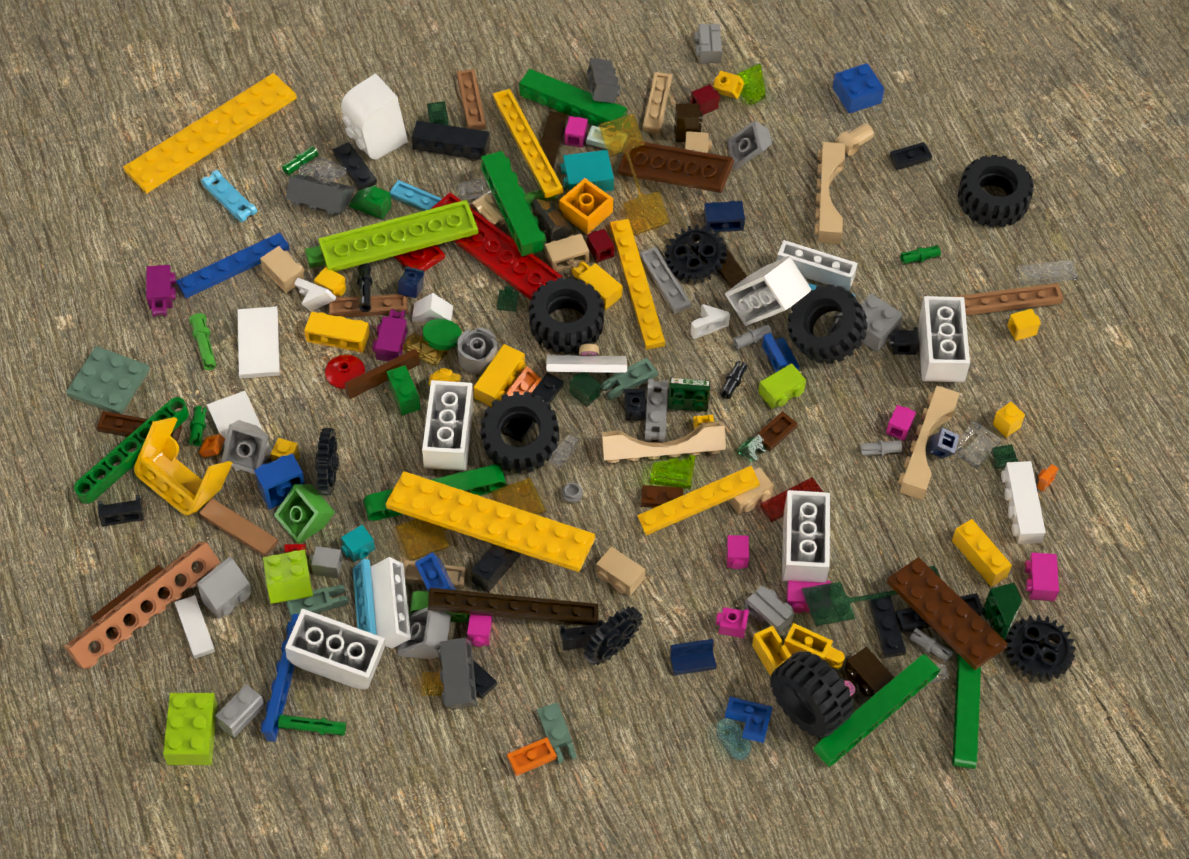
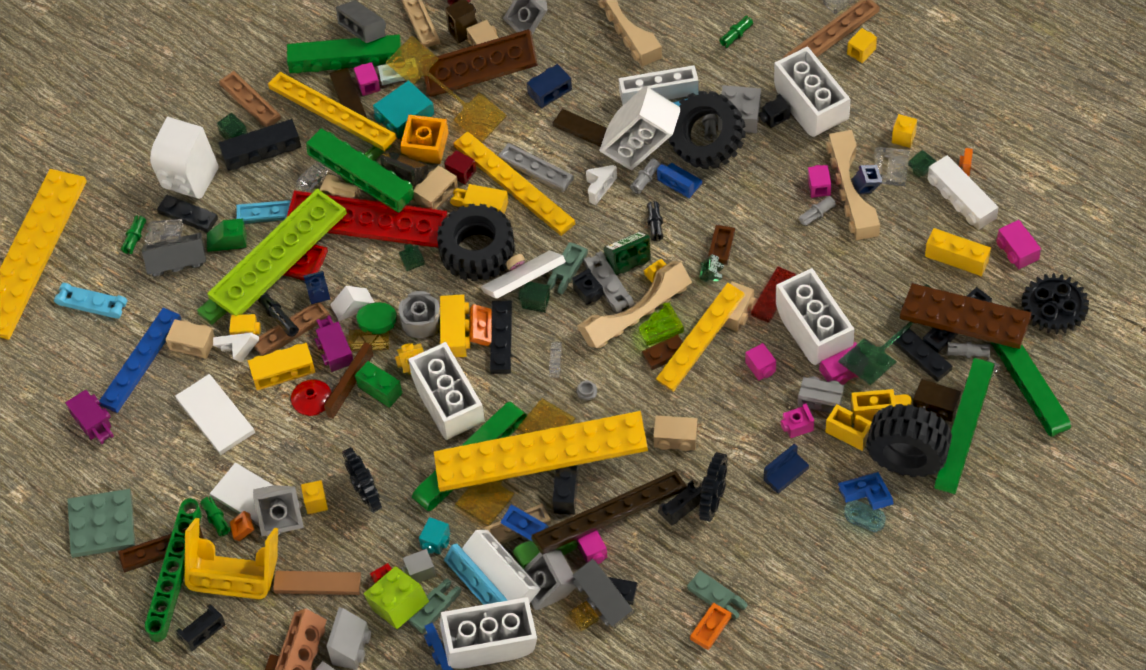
camera: 25 degrees left, 0 degrees up
(201, 334) = (158, 435): bright green pin -> none
(278, 479) = (329, 520): blue brick -> none
(303, 512) = (367, 537): bright green slope -> none
(519, 407) = (510, 337): black tyre -> none
(683, 264) = (542, 146): black gear -> none
(782, 386) = (700, 204): lime brick -> none
(1002, 608) = (1008, 286): dark green slope -> none

